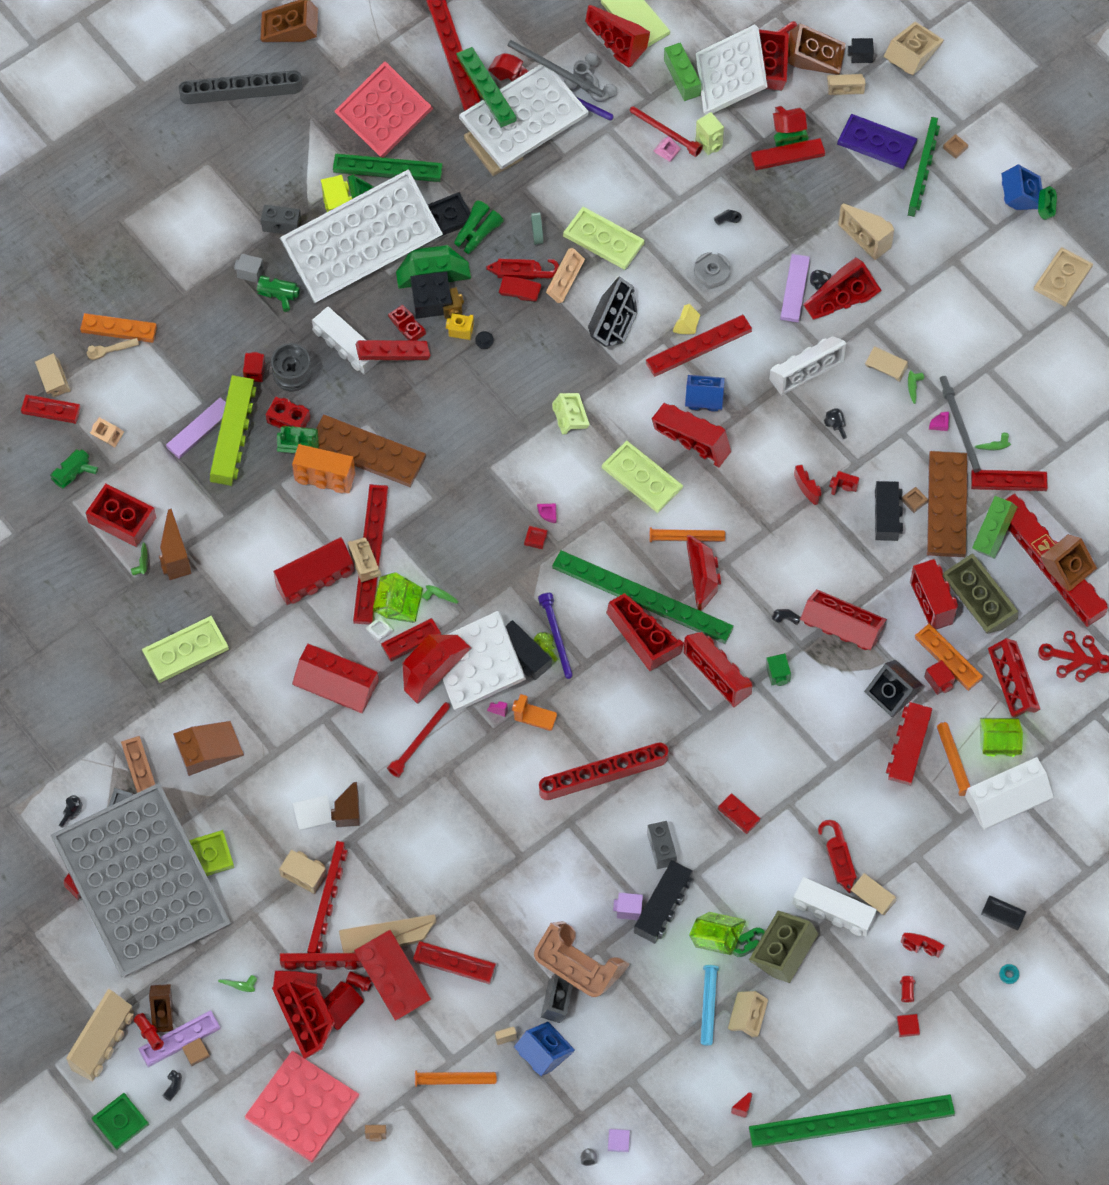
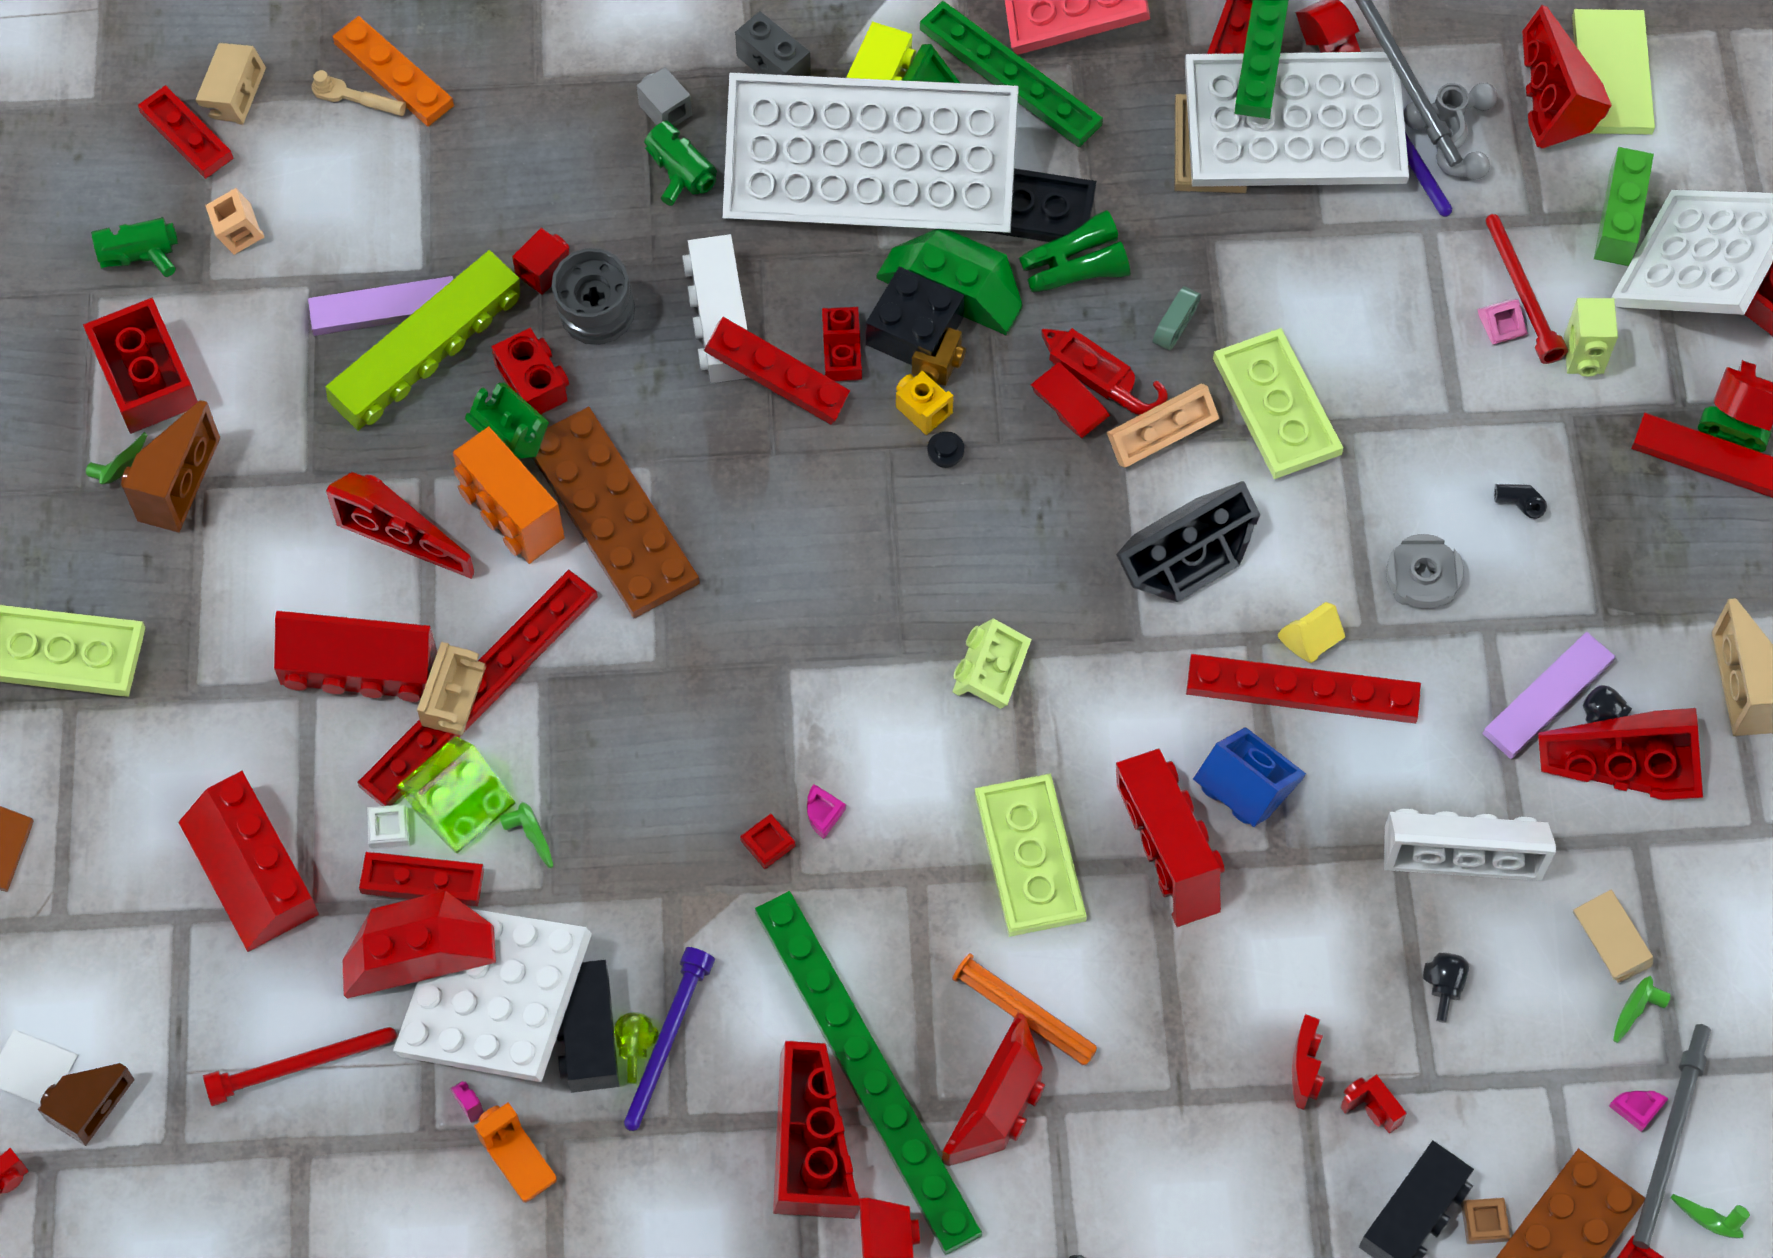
camera: 35 degrees right, 0 degrees up
(277, 511) = (378, 513): none -> red wedge

